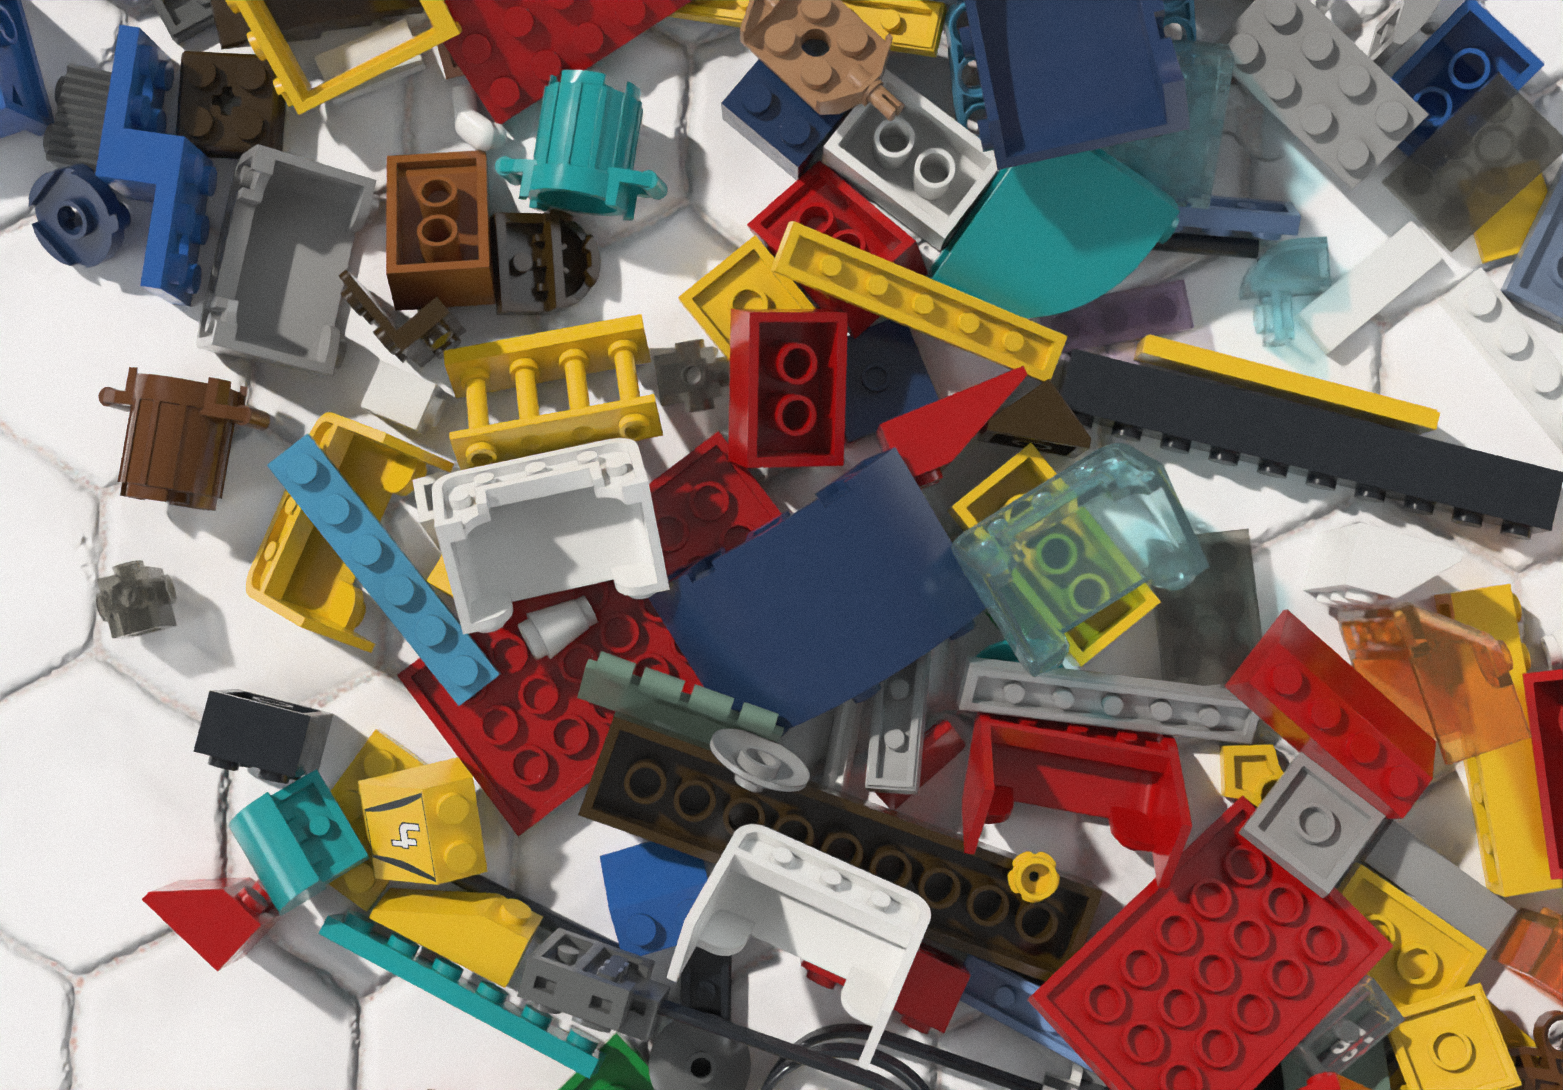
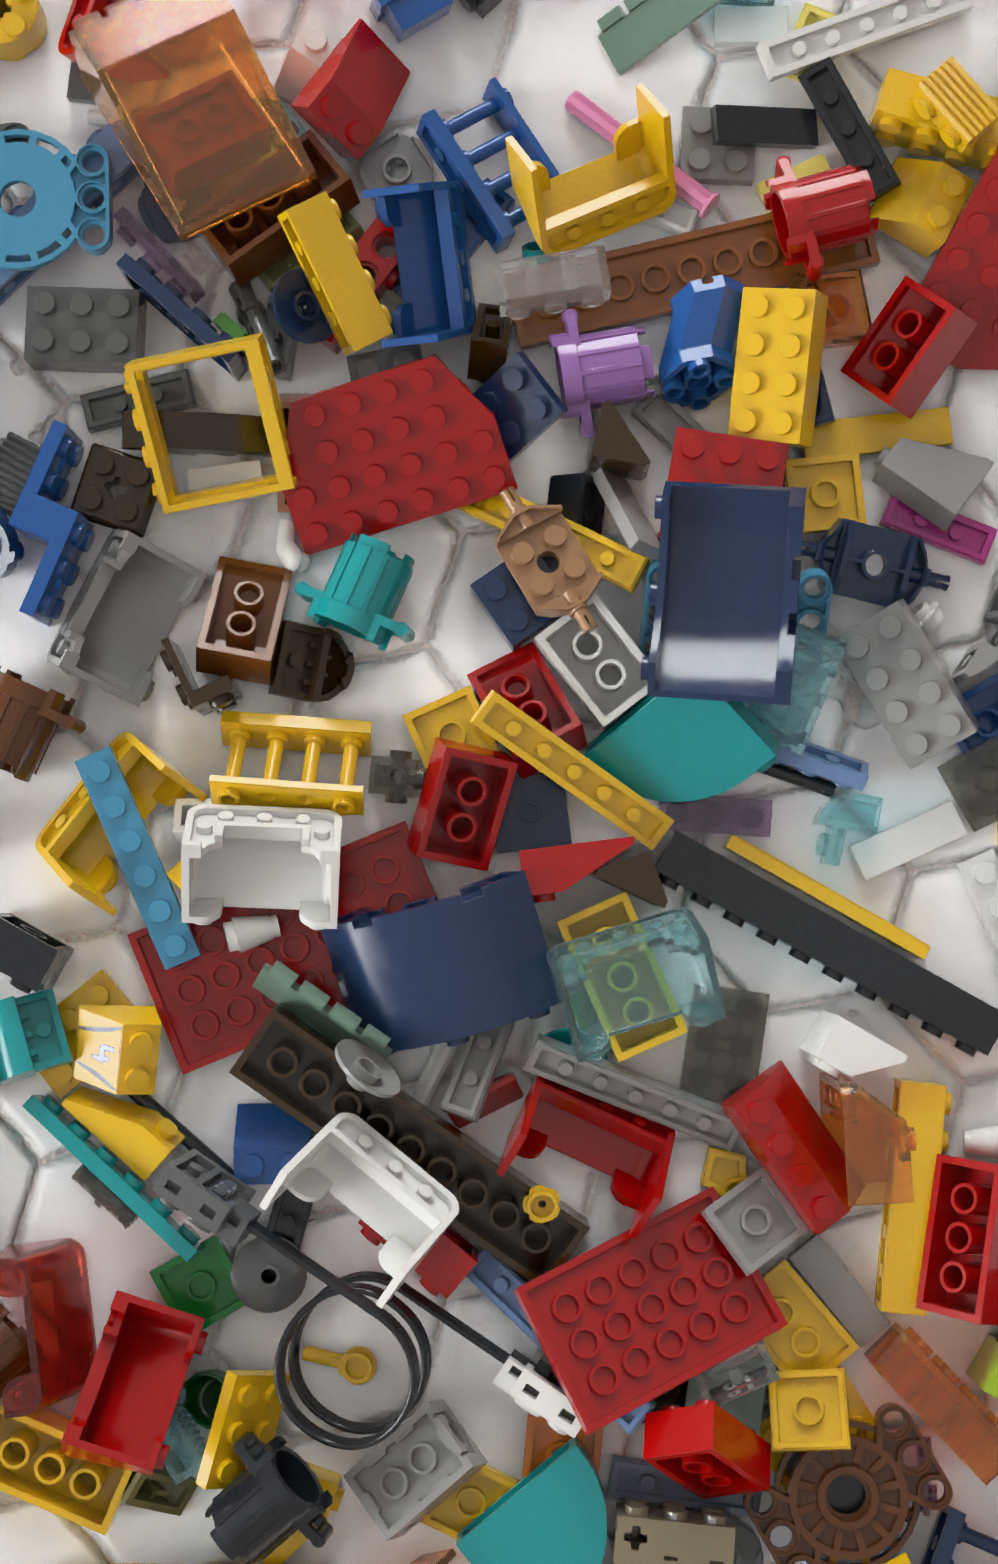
camera: 25 degrees right, 0 degrees up
(404, 398) = (185, 736): white brick -> none
(458, 1022) = (104, 1196): none -> clear smoke pin

